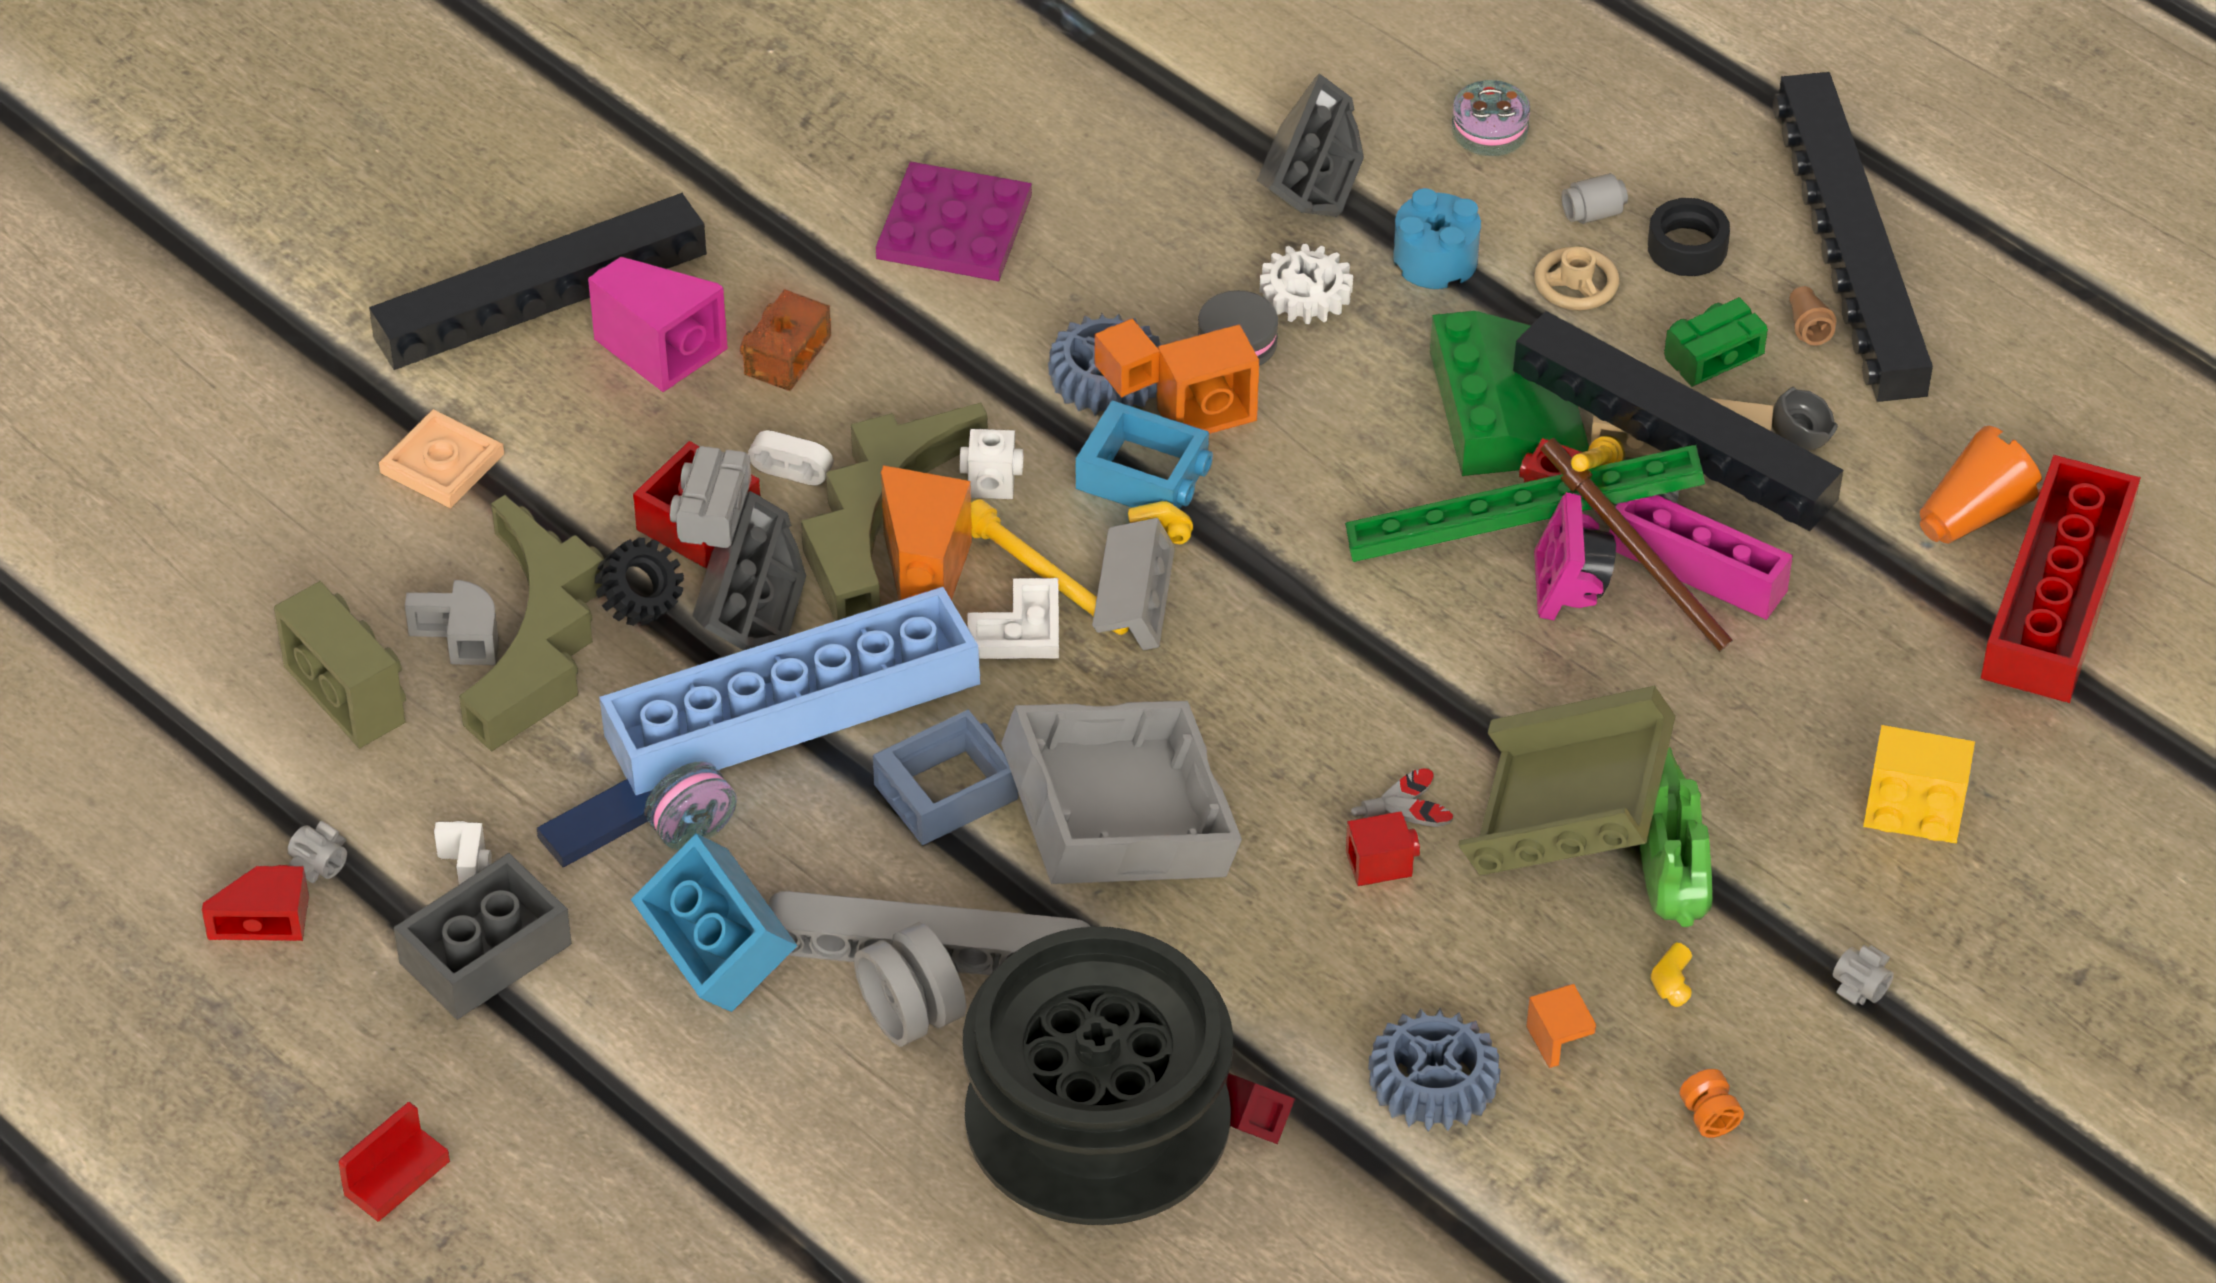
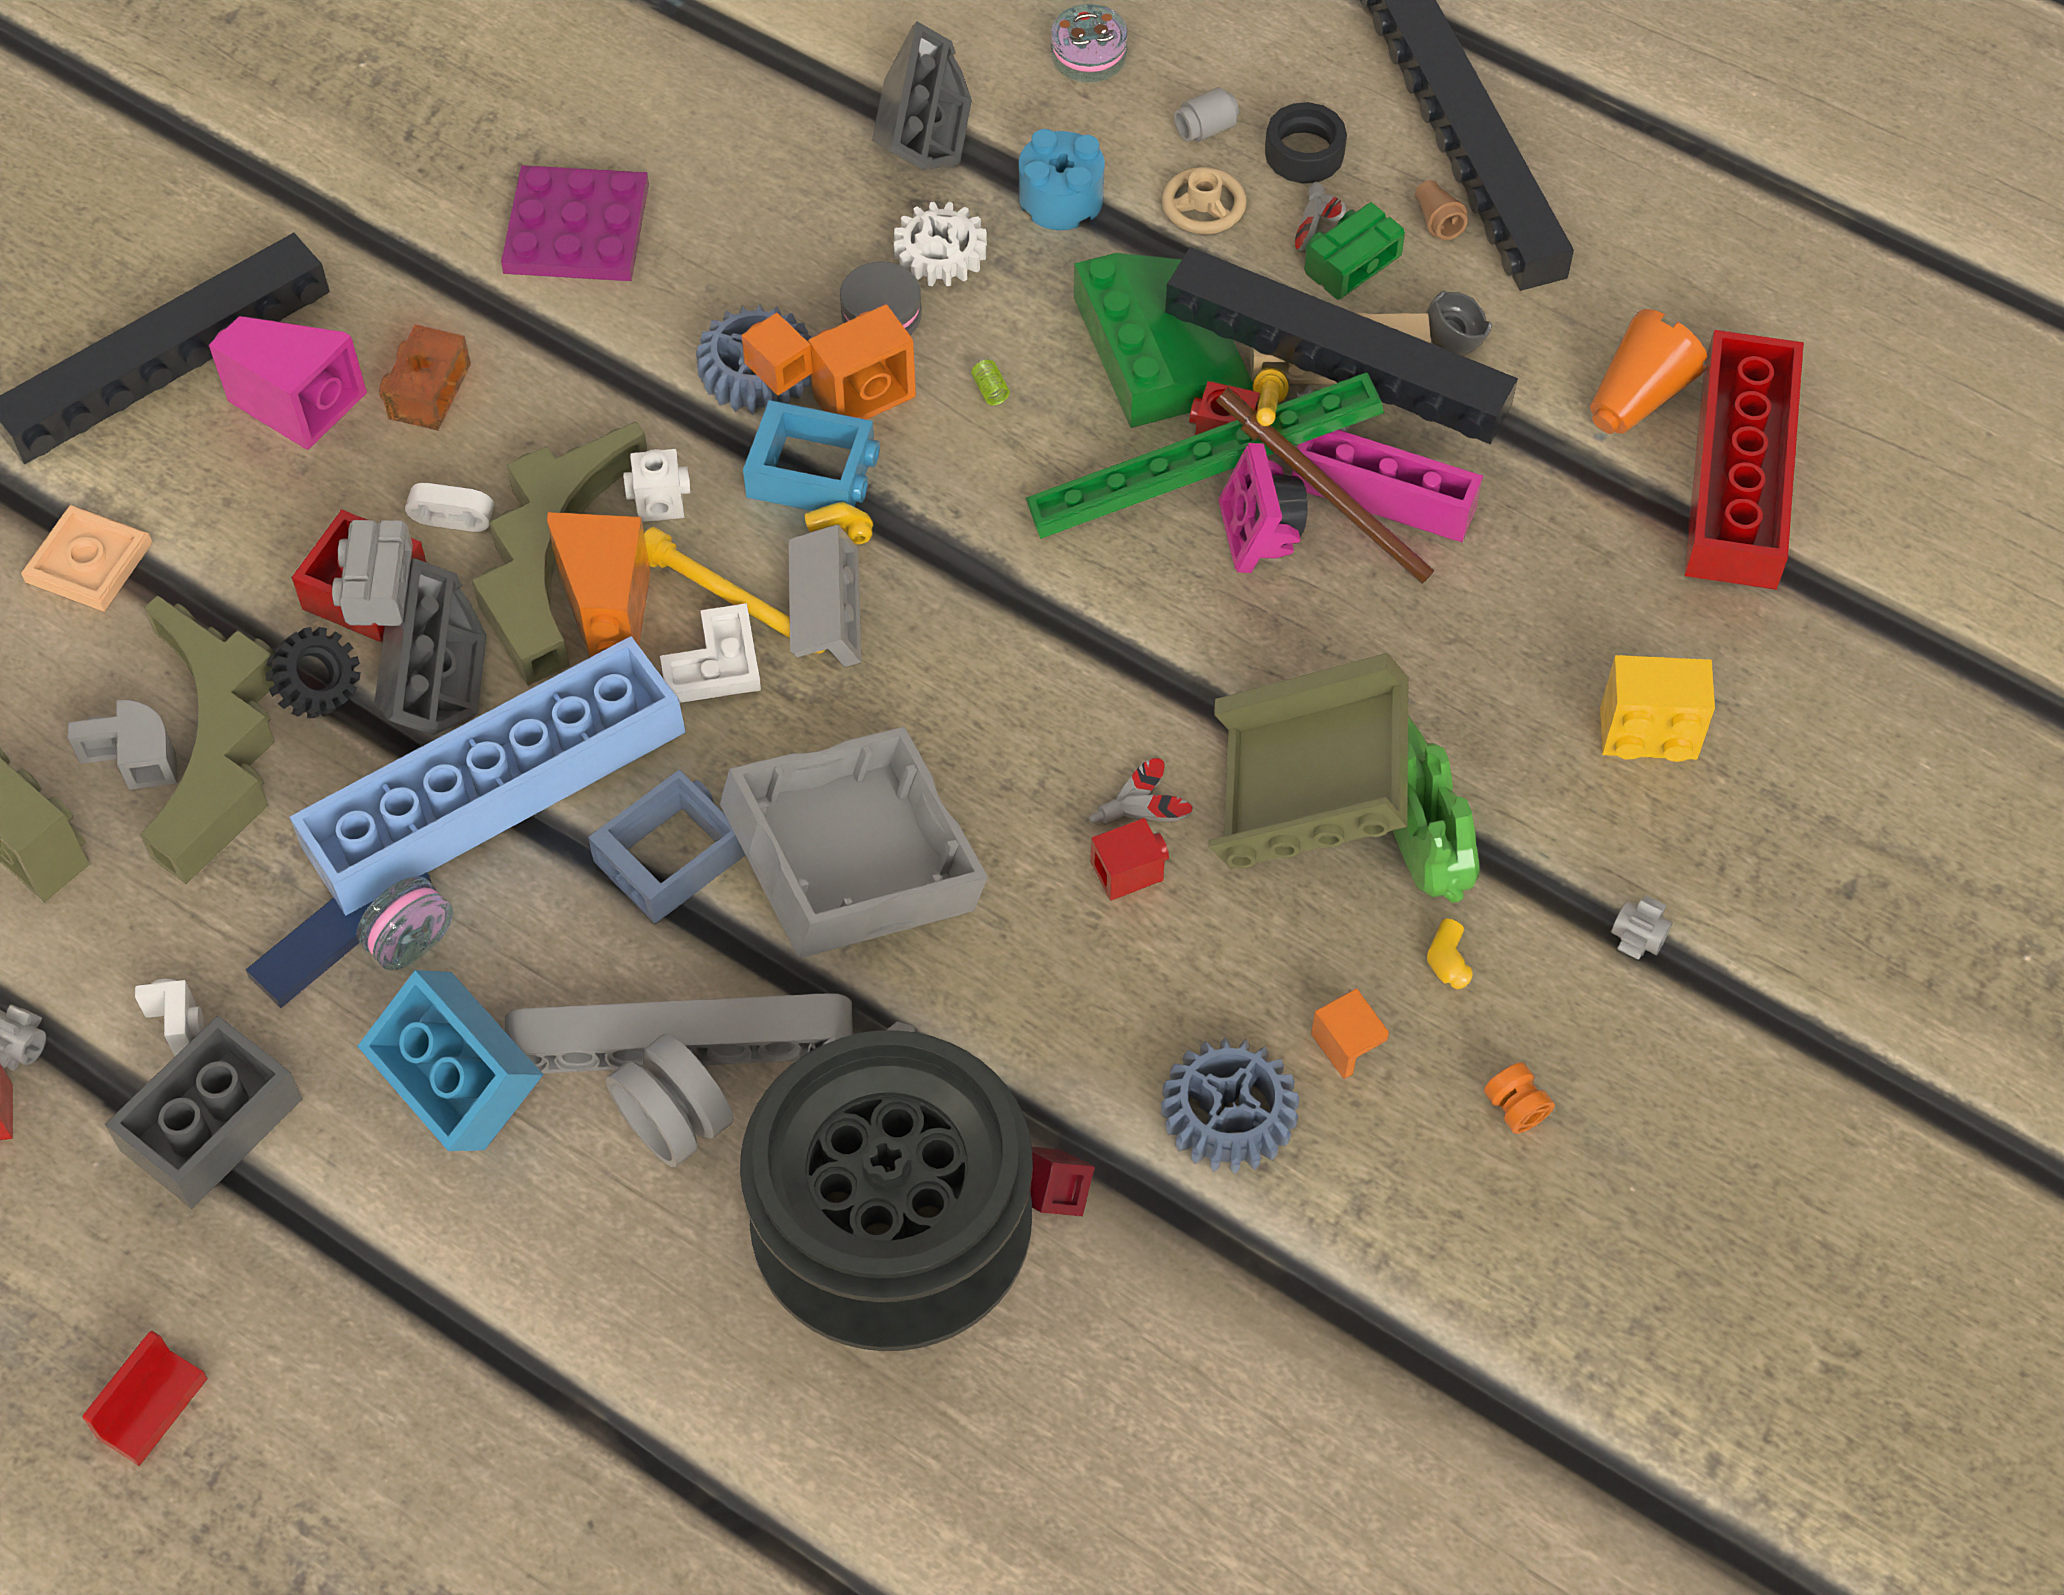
camera: 10 degrees left, 10 degrees up
(1329, 412) = (987, 377): none -> lime piece
(1691, 295) = (1319, 205): none -> light grey piece

